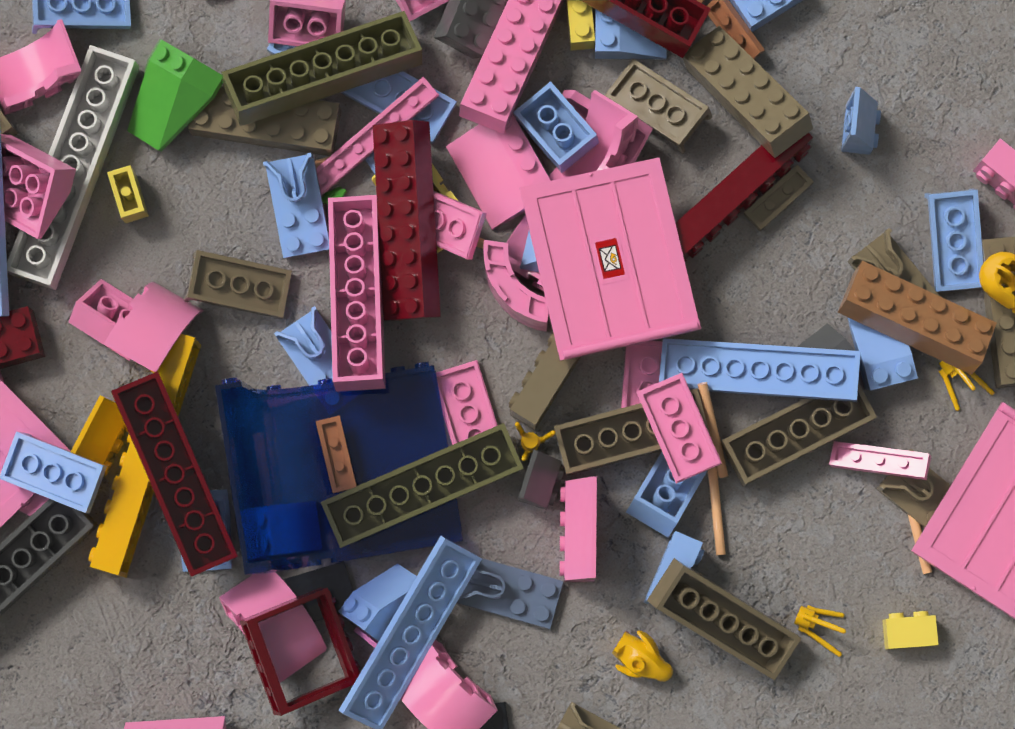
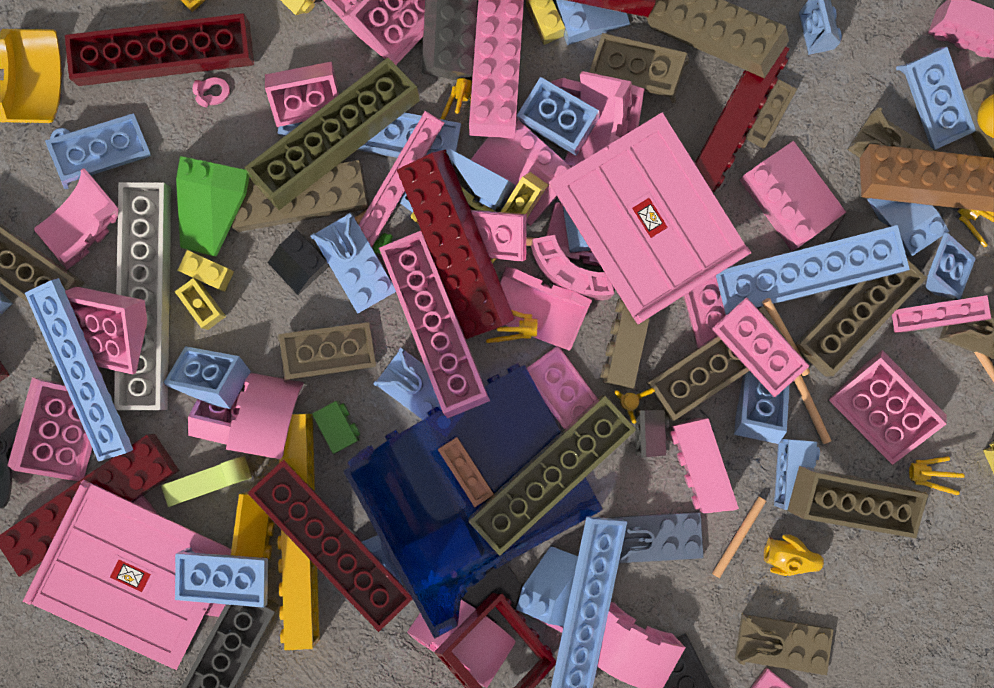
camera: 20 degrees left, 5 degrees up
(97, 374) = (206, 481): none -> yellowish green beam
(110, 269) = (208, 376): none -> light blue slope
(145, 163) = (205, 270): none -> light yellow brick
(220, 361) = (336, 426): none -> bright green brick
(241, 185) = (297, 262): none -> black slope
(450, 330) = (526, 329): none -> yellow plant
(462, 176) = (486, 184): none -> light blue slope
(466, 70) = (462, 92): none -> yellow plant
(473, 320) = (556, 308): none -> bright pink panel
(494, 195) = (525, 195): none -> light yellow brick
(595, 621) = (739, 536): none -> light nougat bar
(773, 289) = (792, 196): none -> bright pink slope
(795, 539) = (888, 408): none -> bright pink slope
(902, 414) = (950, 269): none -> light blue slope

